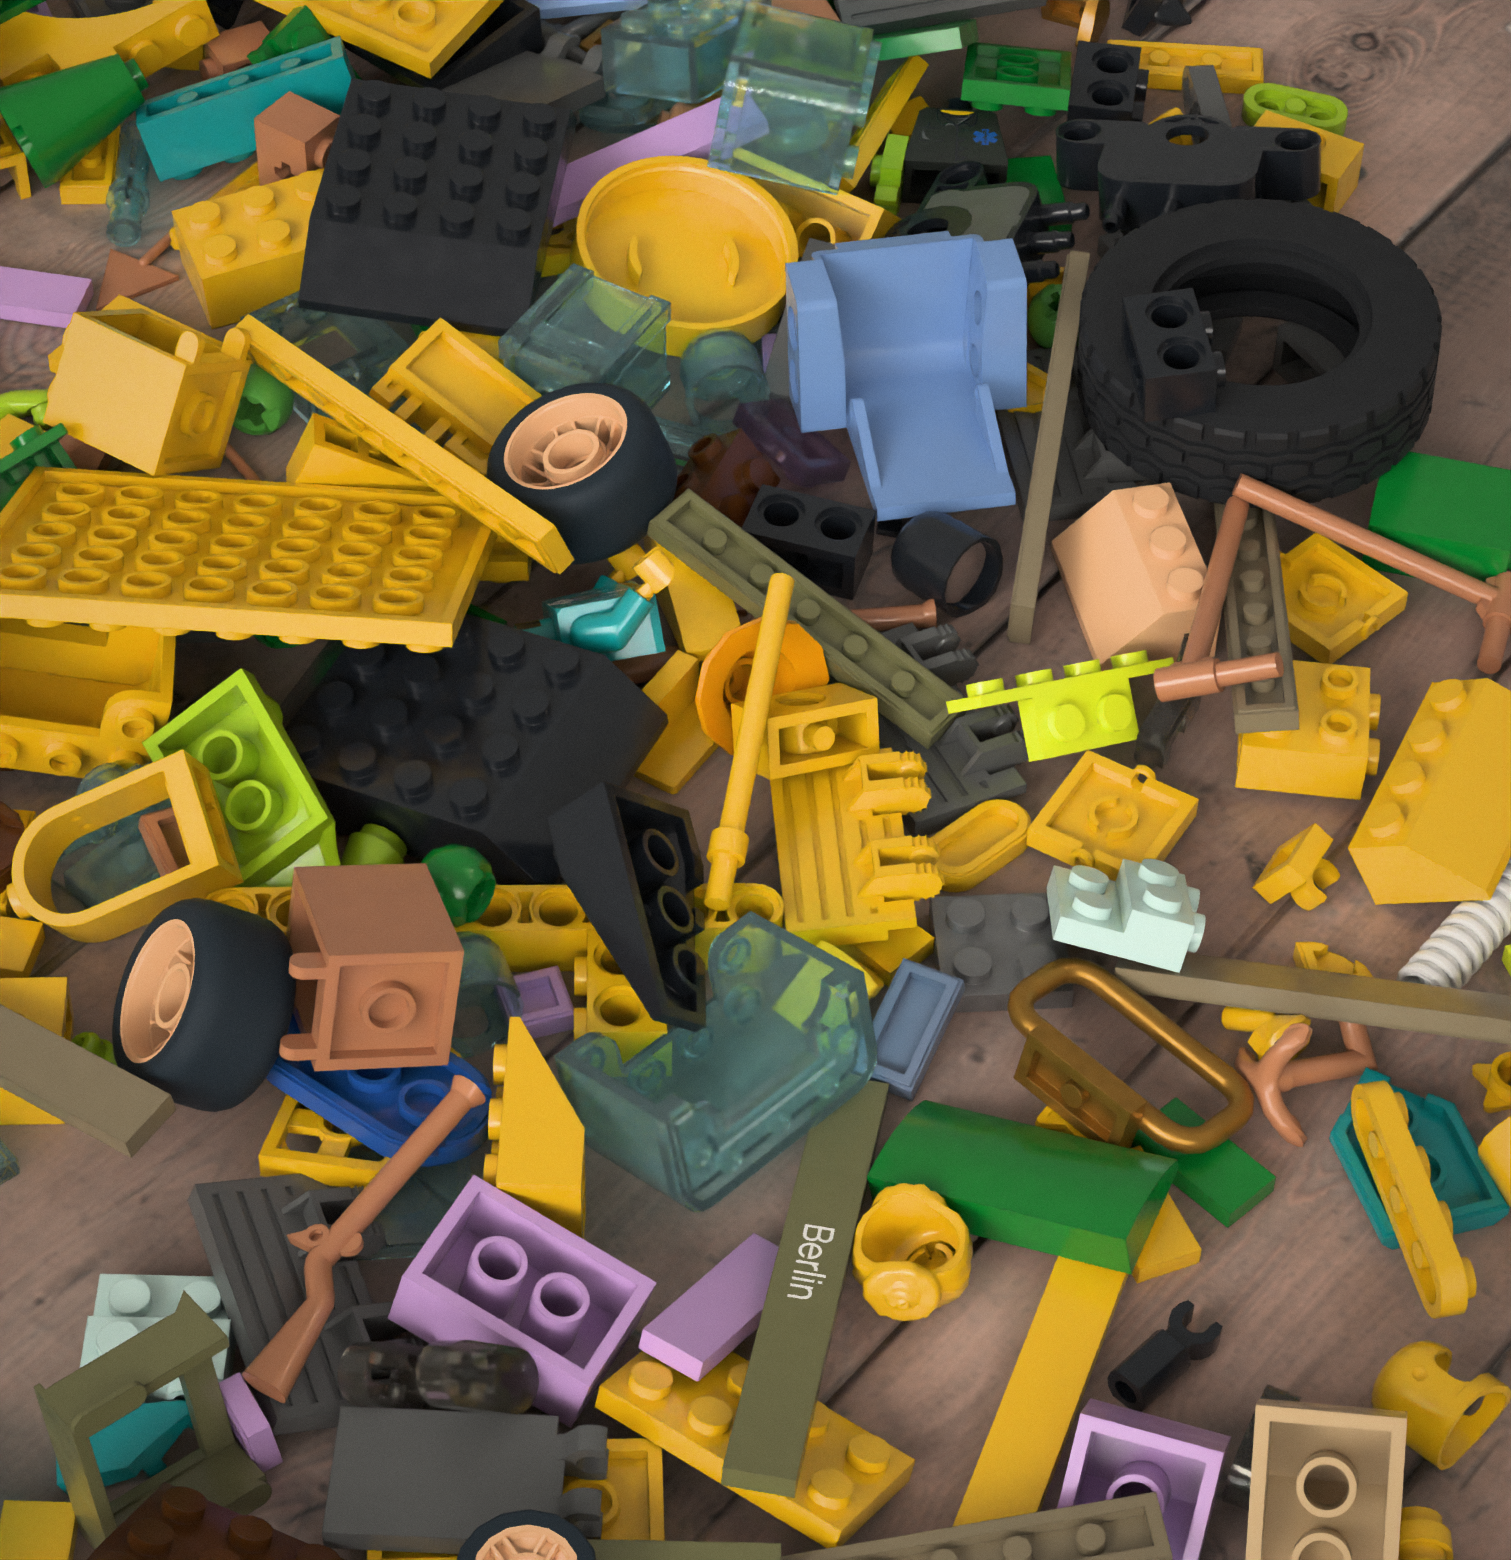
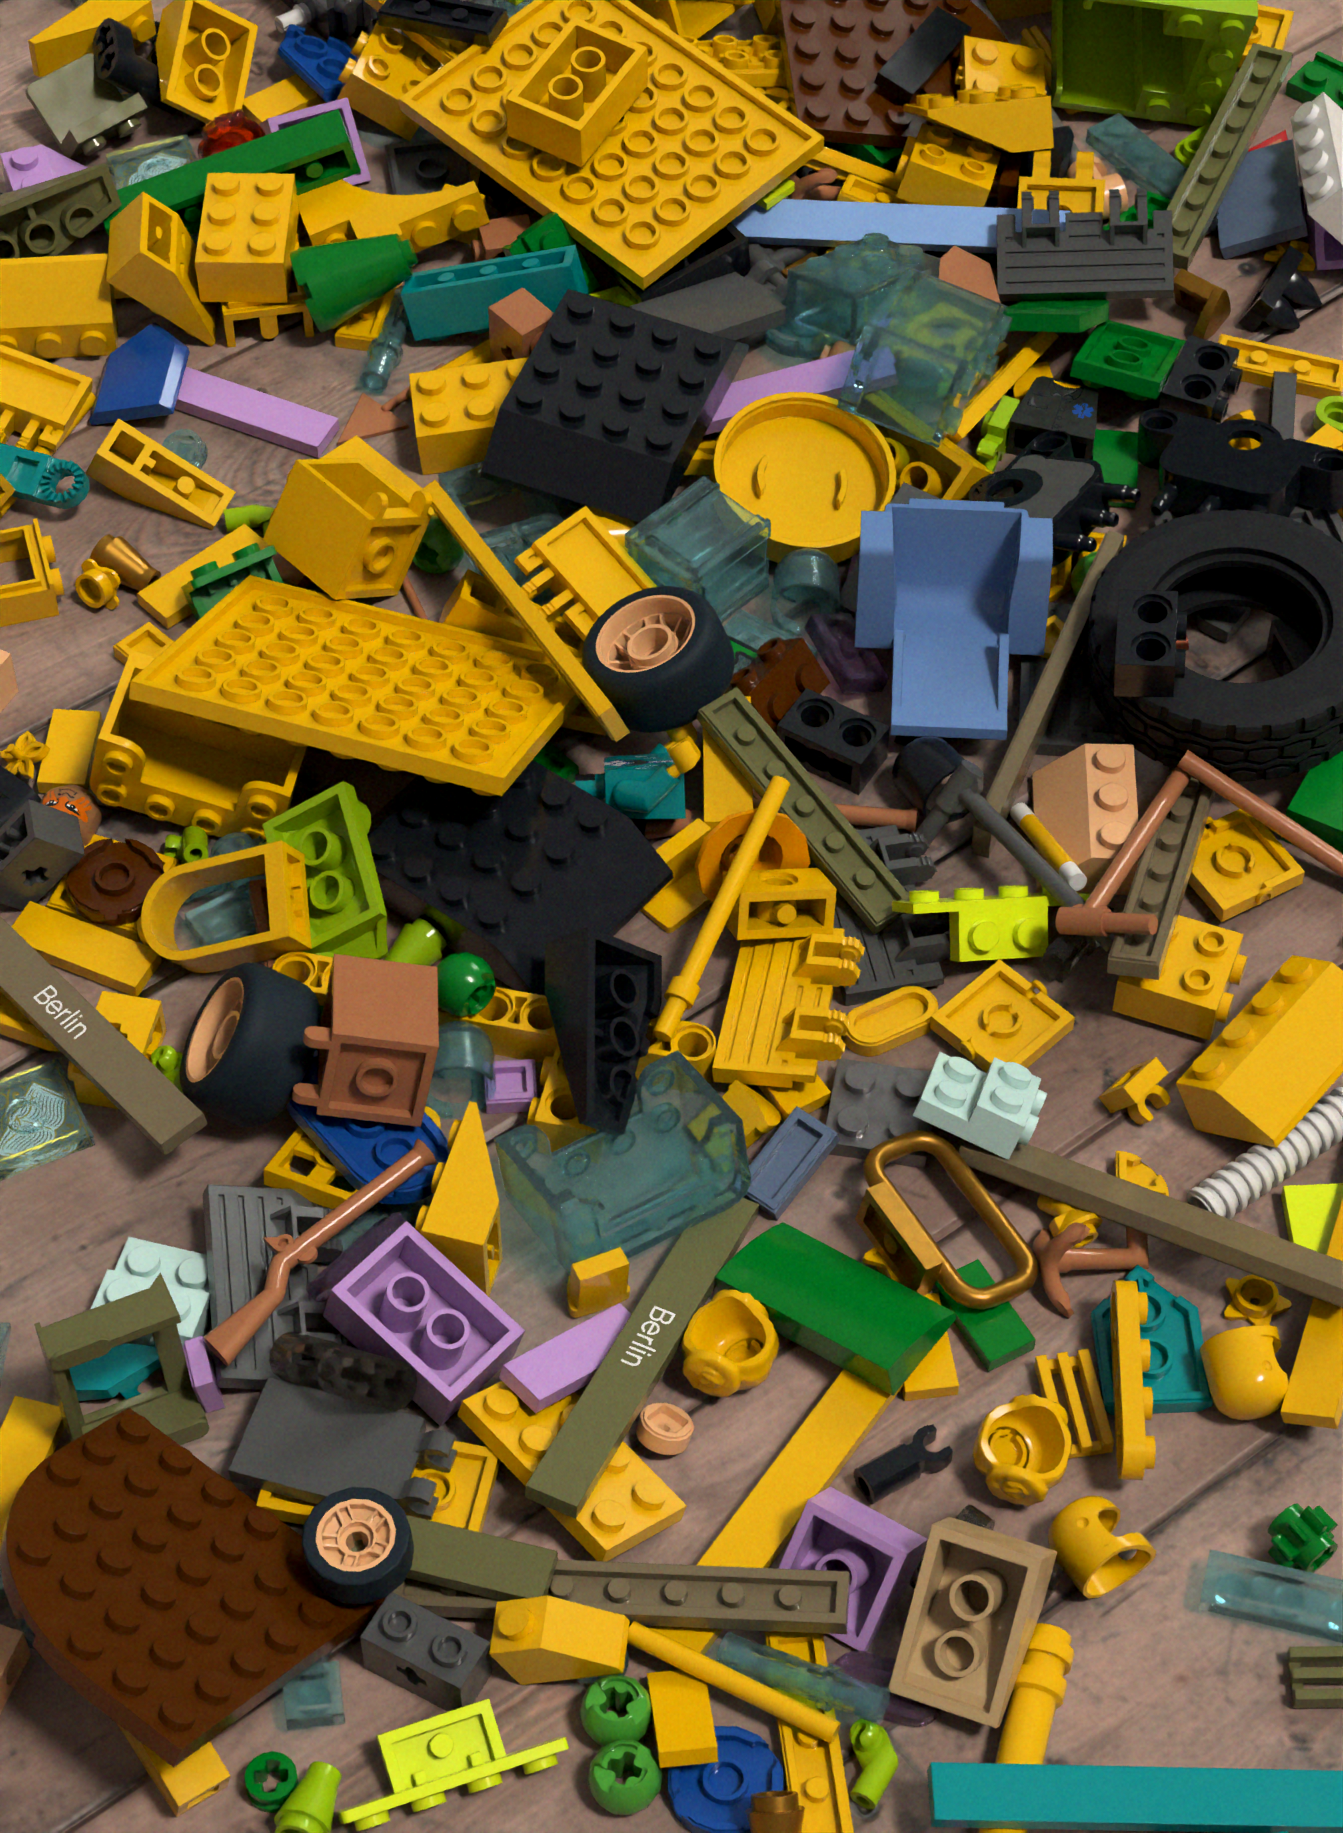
camera: 15 degrees right, 5 degrees up
(48, 788) = (189, 847): none -> lime arm
(408, 1238) = (322, 1284): none -> clear purple tile
(721, 1212) = (598, 1283): none -> yellow tile
(858, 1372) = (664, 1428): none -> light nougat tile
(991, 566) = (962, 795): none -> dark grey bar
(1104, 614) = (1048, 846): none -> bar
(1310, 1305) = (1023, 1448): none -> yellow hair
(1362, 1227) = (1065, 1366): none -> yellow tile

